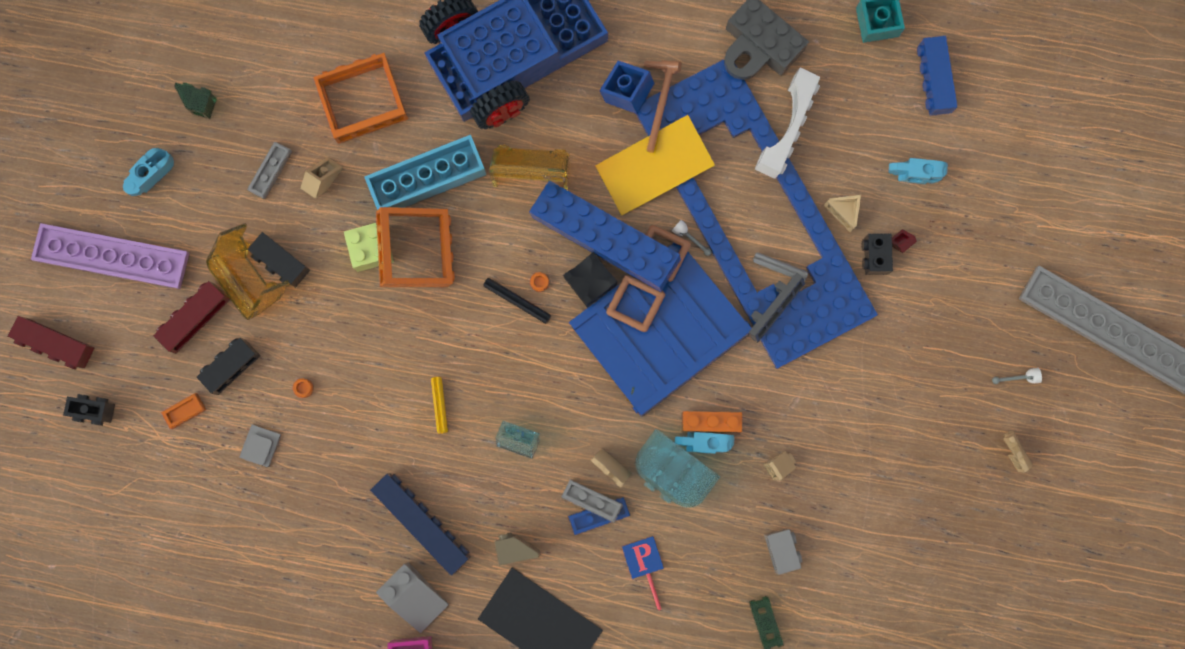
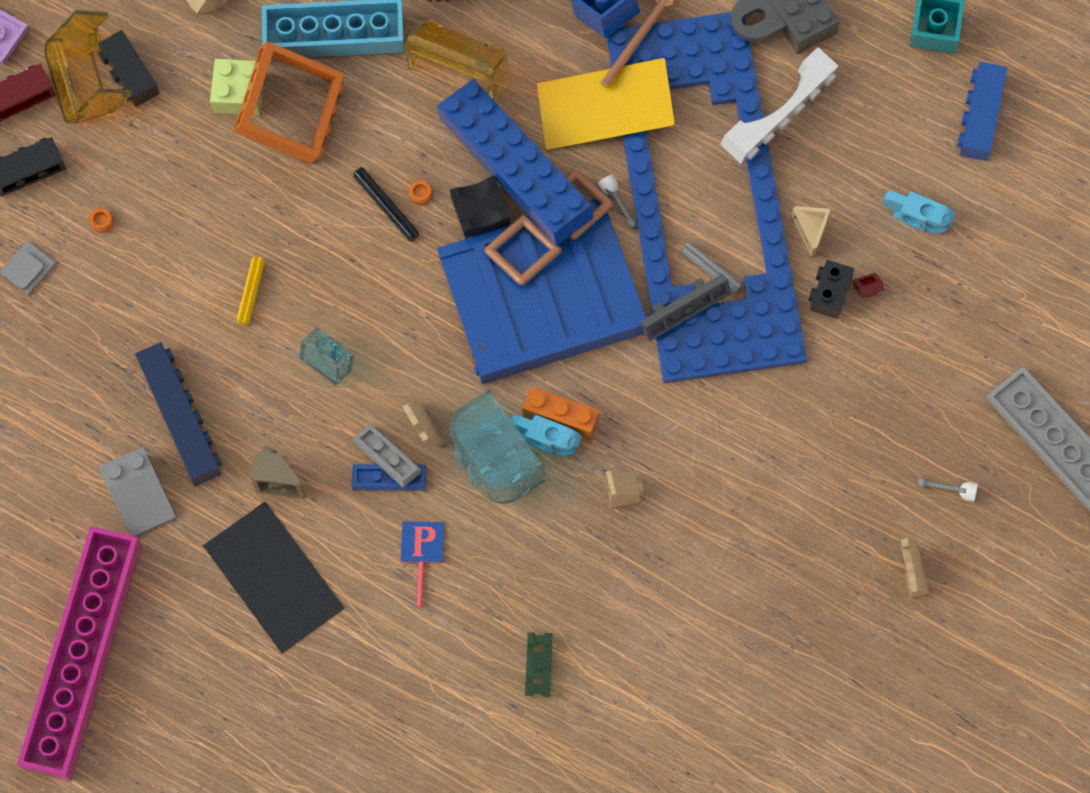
camera: 20 degrees right, 10 degrees down
(783, 551) = (589, 587): light grey brick -> none

